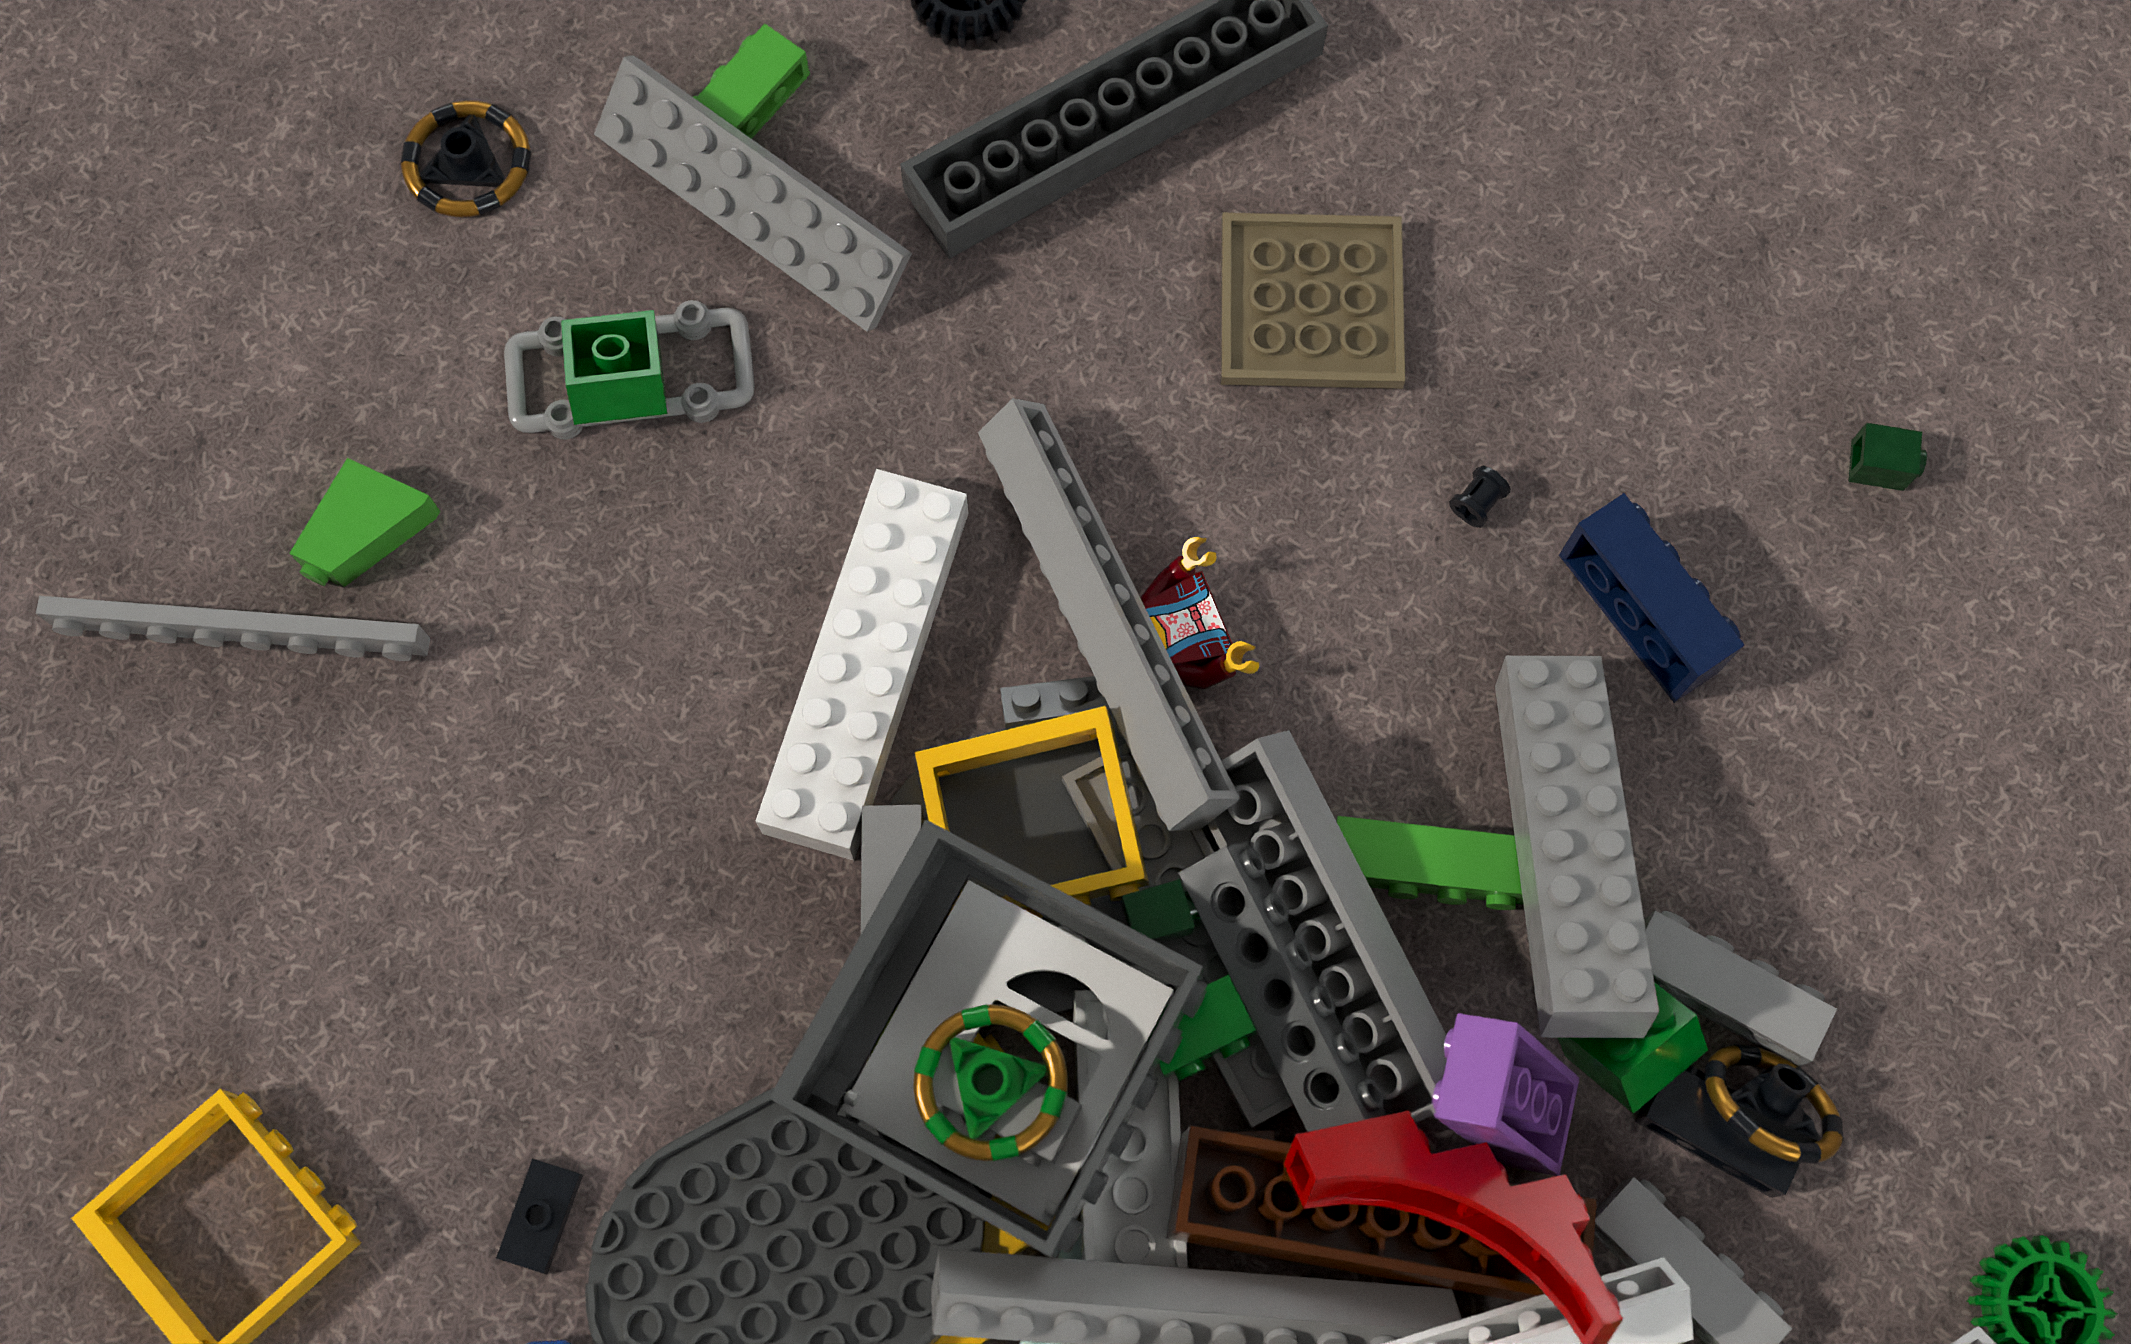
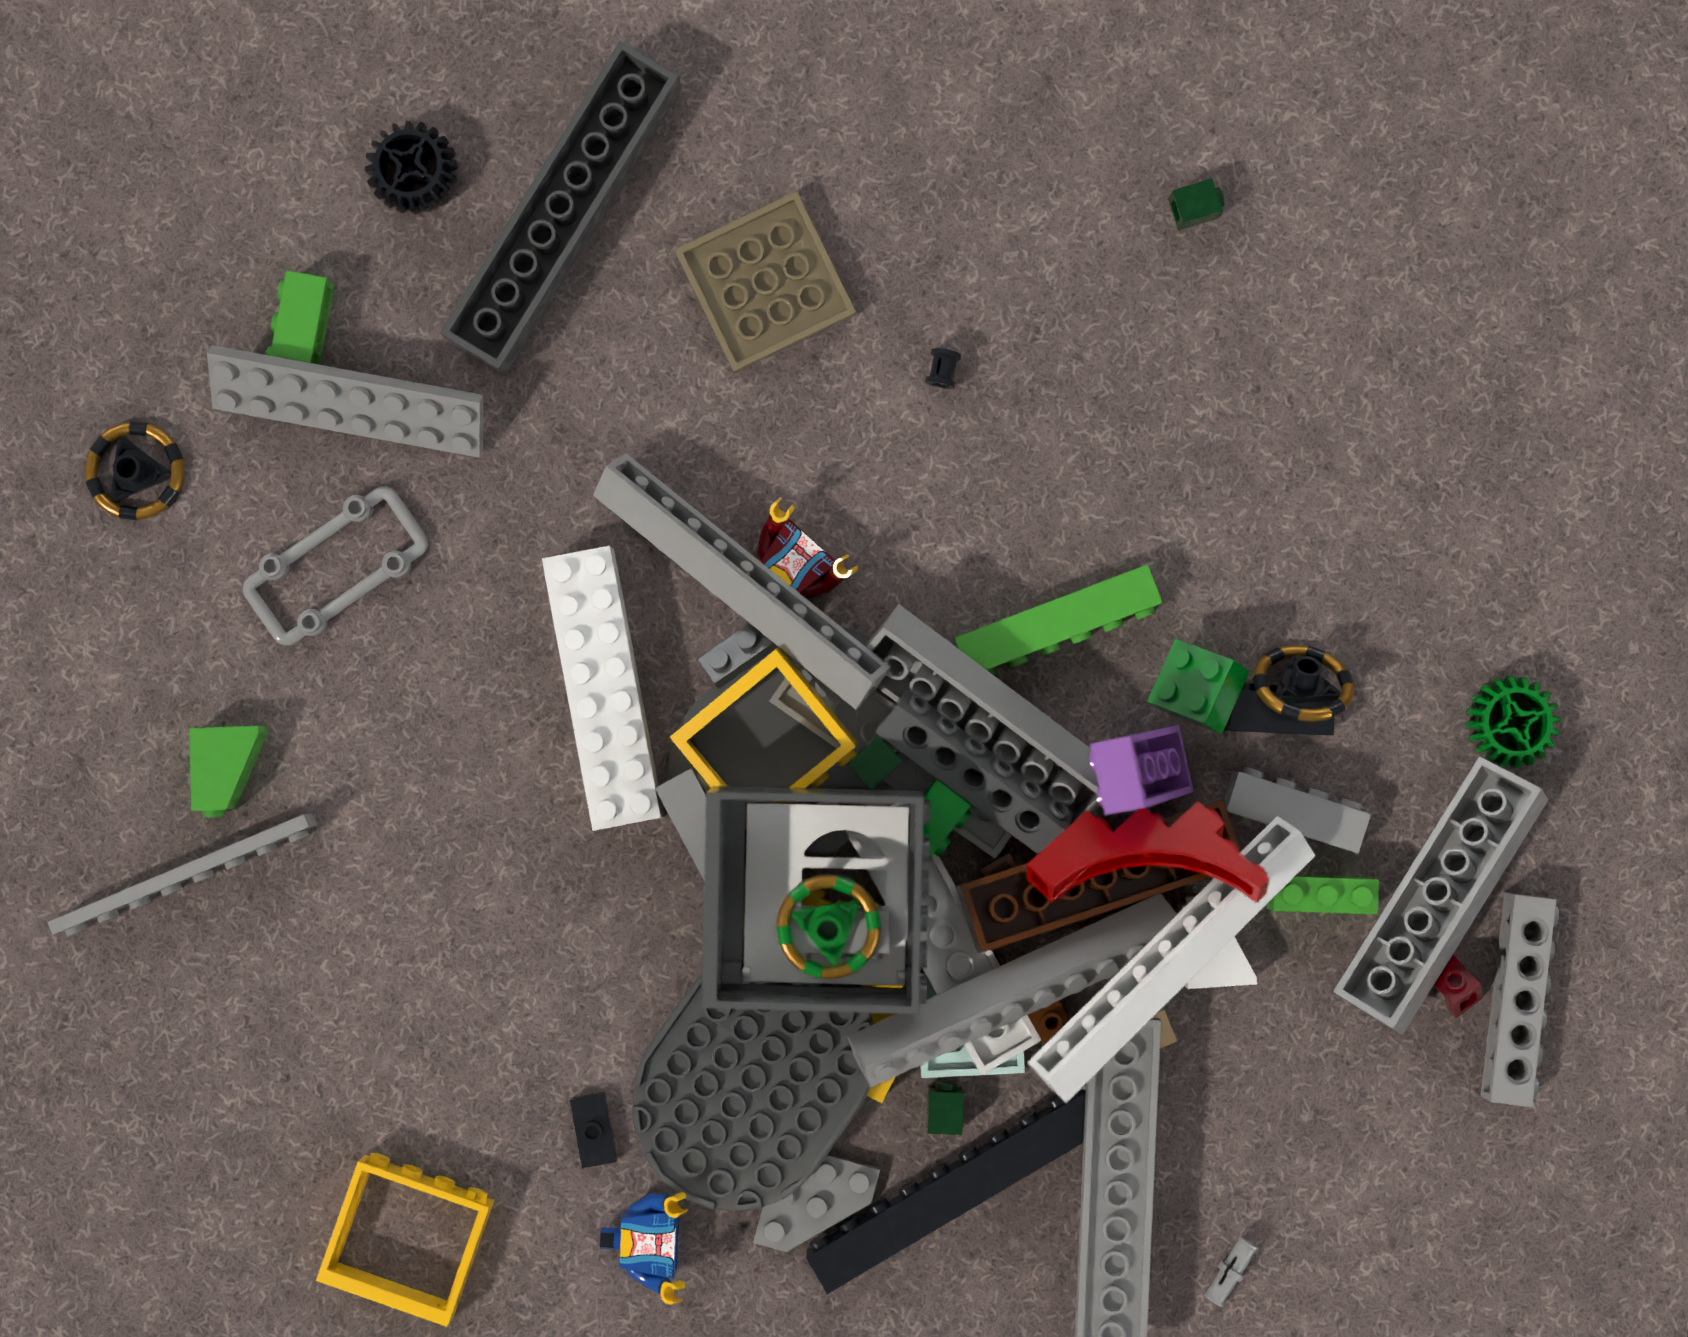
camera: 25 degrees left, 15 degrees up
(613, 367) = (327, 575): green brick -> none
(1574, 850) = (1110, 585): light grey brick -> none
(1651, 597) = (1086, 388): dark blue brick -> none
(1736, 992) = (1245, 620): light grey brick -> none

